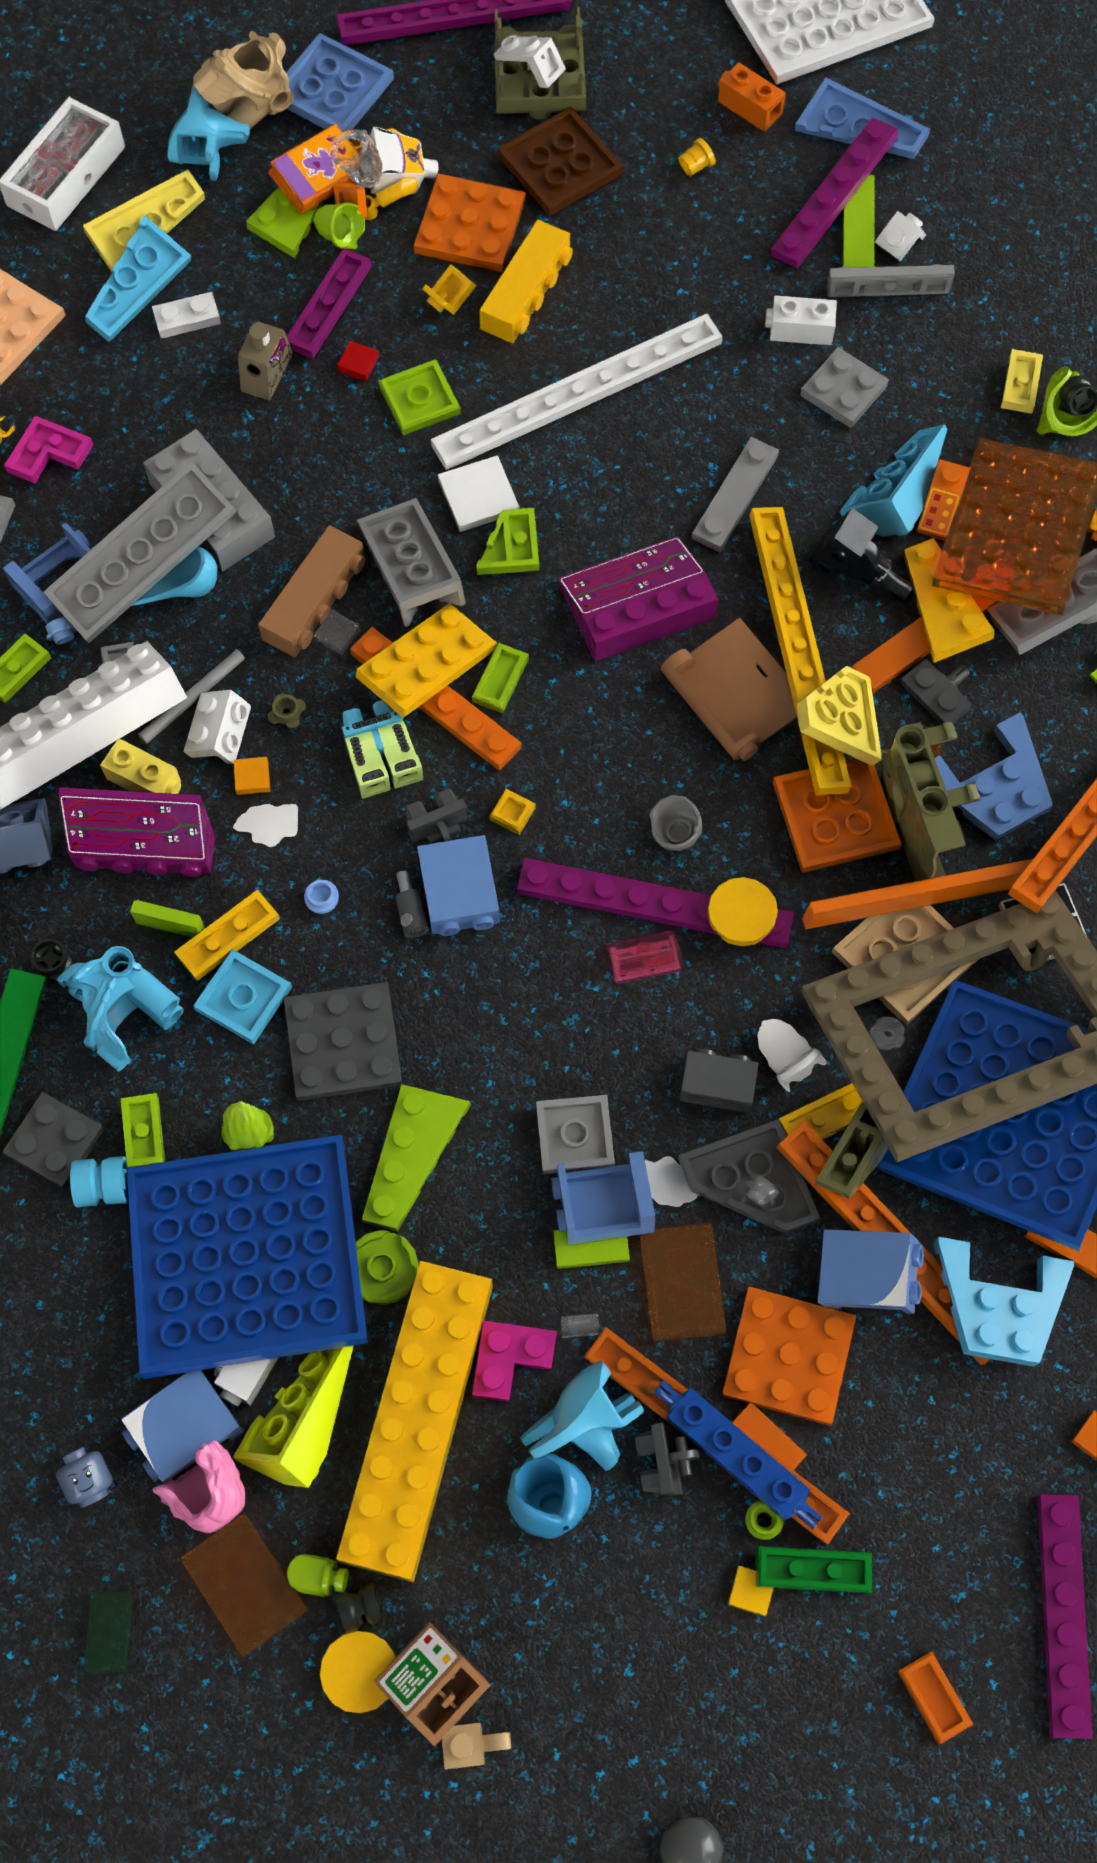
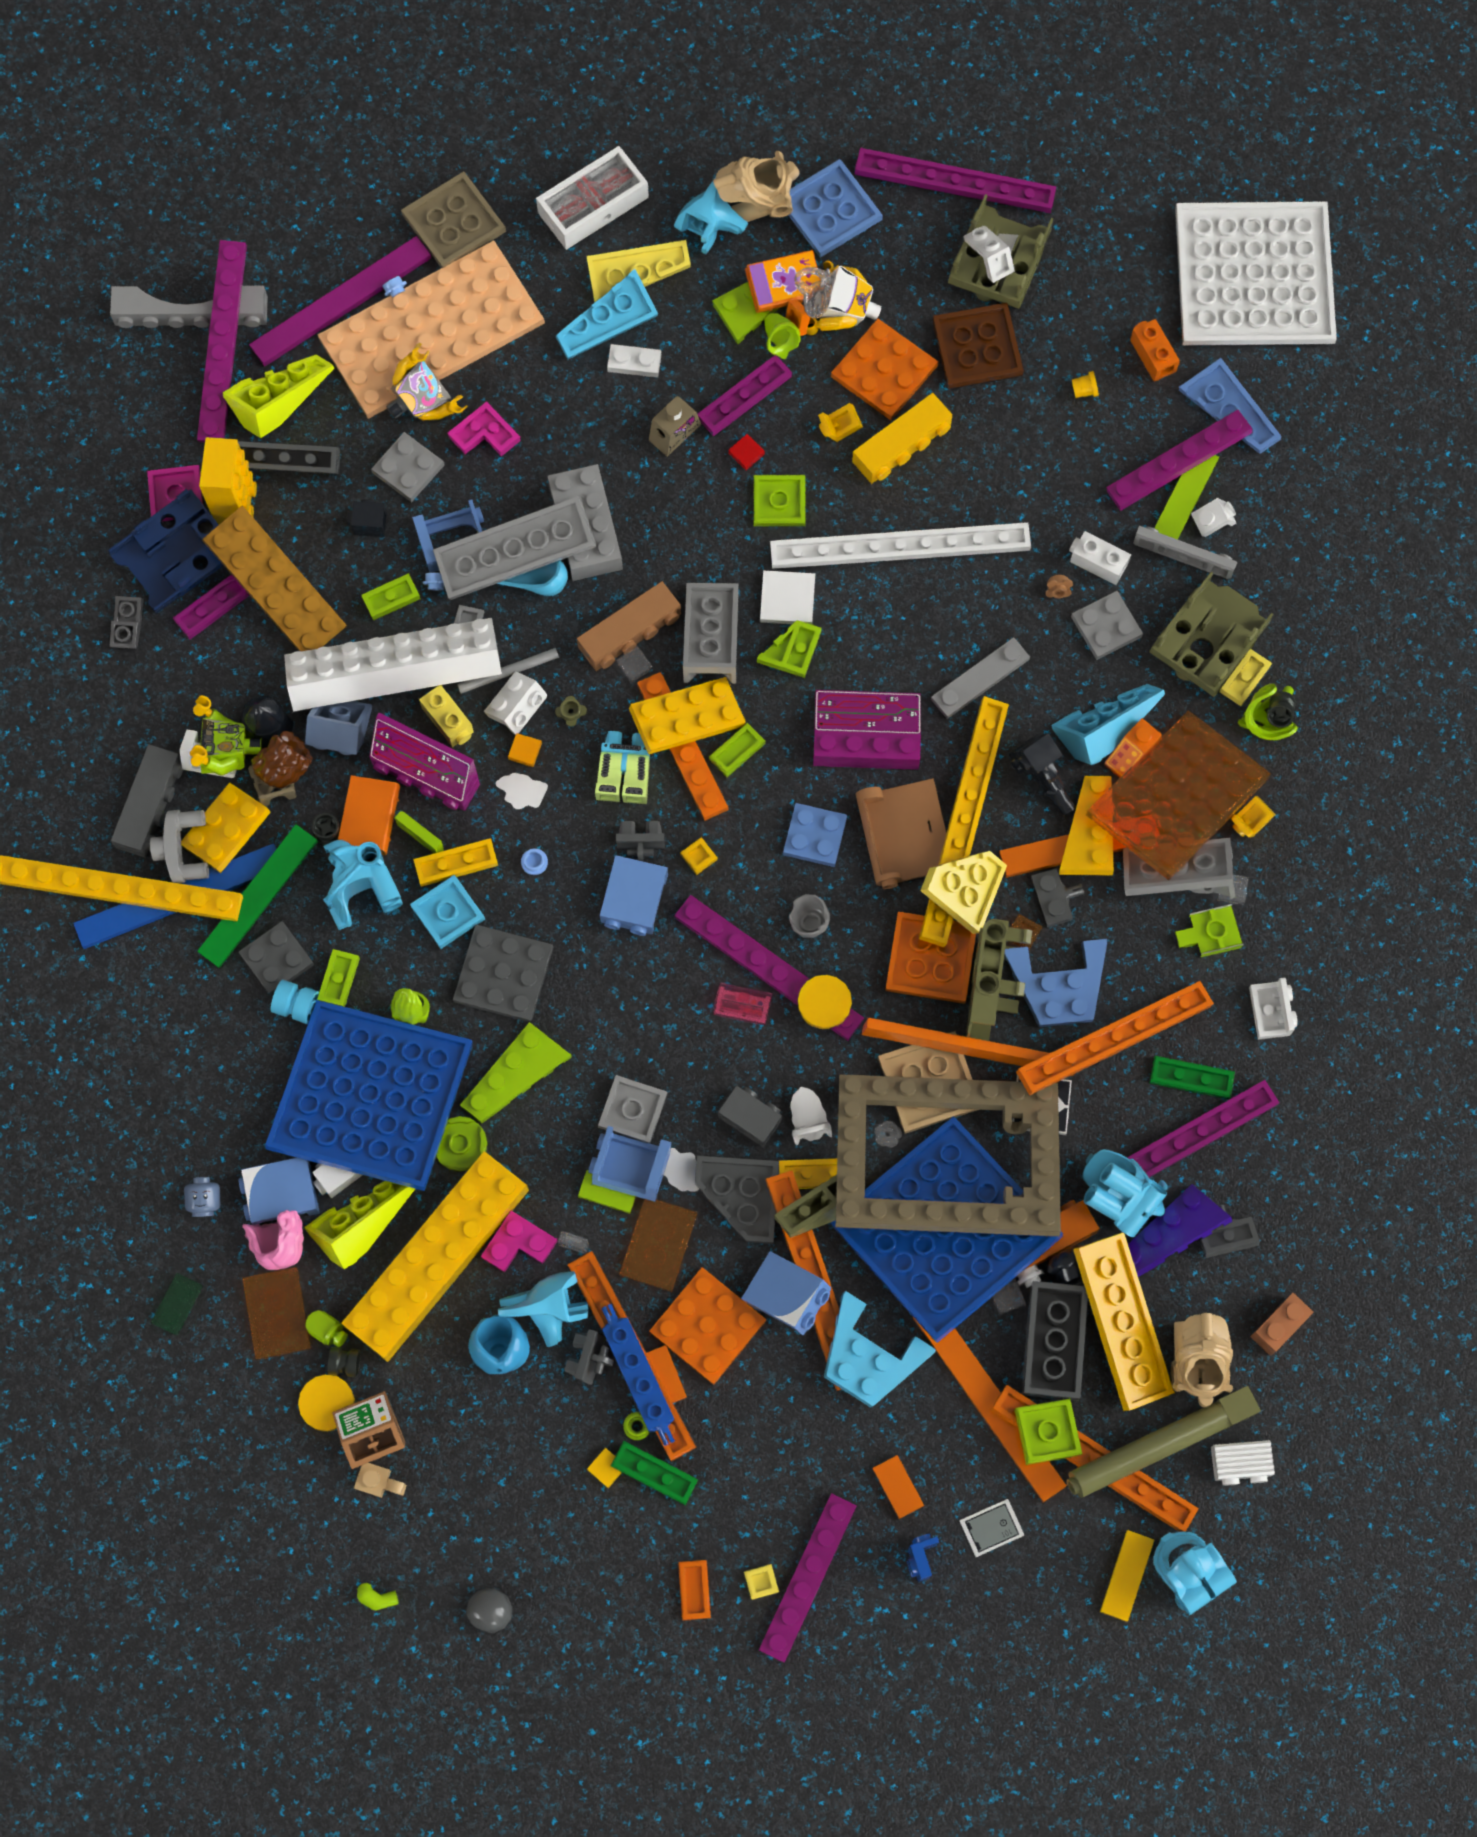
camera: 25 degrees right, 5 degrees up
(94, 917) = (369, 812): none -> orange piece
(410, 908) = (593, 897): dark grey piece -> none
(635, 734) = (815, 835): none -> medium blue plate
(762, 1191) = (740, 1206): clear plate -> none
(773, 366) = (1059, 586): none -> medium nougat plate
(968, 337) = (1215, 616): none -> olive piece
(1011, 1647) = (761, 1582): none -> light yellow tile

